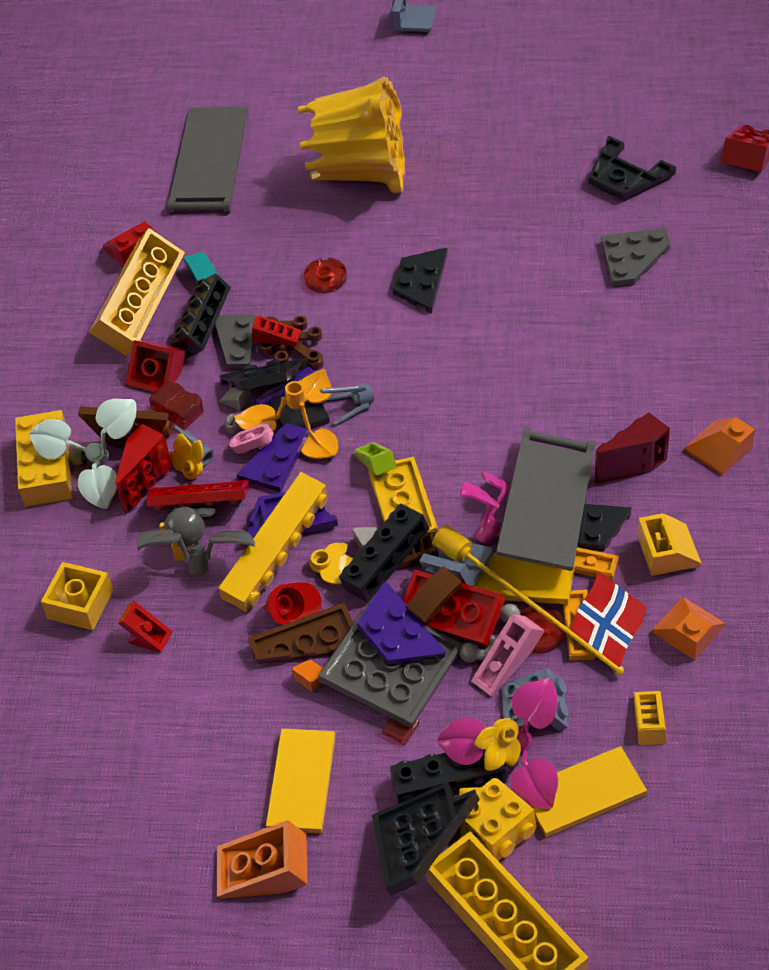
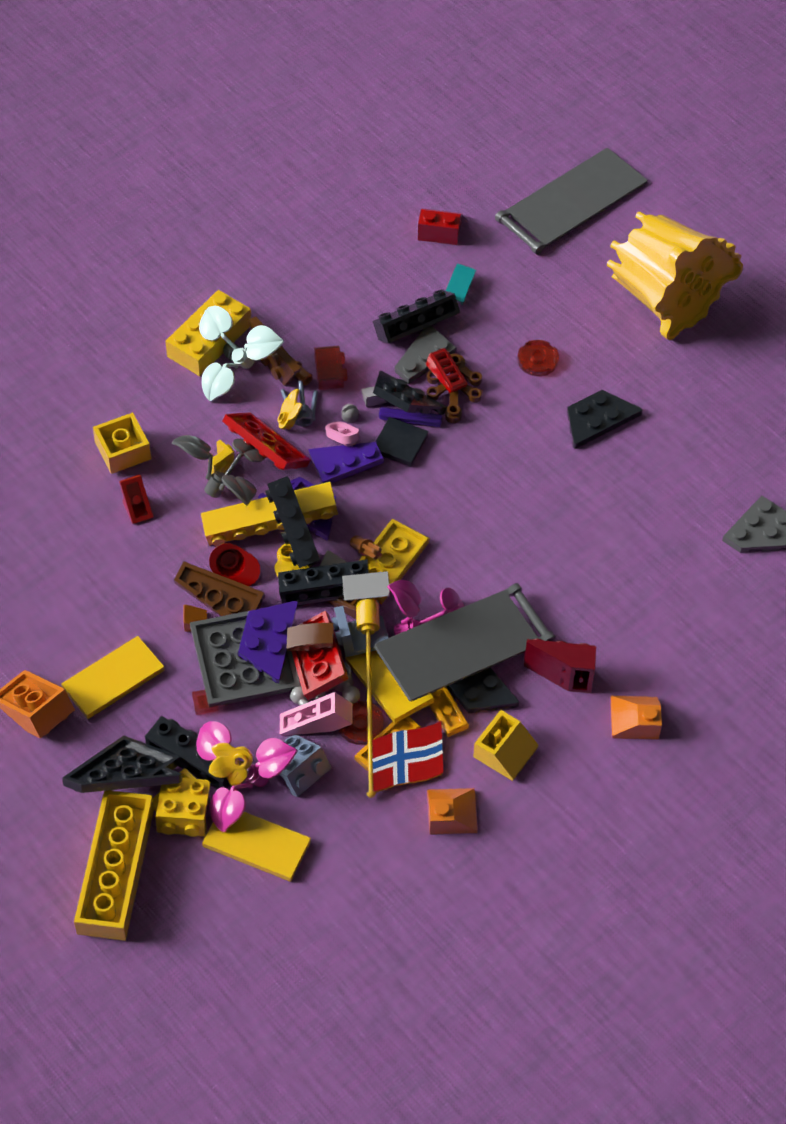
camera: 40 degrees right, 5 degrees up
(137, 292) = (394, 263): yellow brick -> none
(141, 465) = (251, 390): red slope -> none
(153, 365) = (348, 326): red slope -> none
(187, 523) = (226, 454): dark grey hair -> none
(311, 525) = (294, 523): none -> black brick
(321, 443) = (422, 434): light orange plant -> none
(360, 395) = (448, 464): sand blue plant -> none
(376, 458) = (401, 516): lime slope -> none
(380, 500) = (366, 547): none -> dark orange axle
(428, 520) = (366, 585): none -> light grey slope
(654, 730) = (341, 849): yellow slope -> none

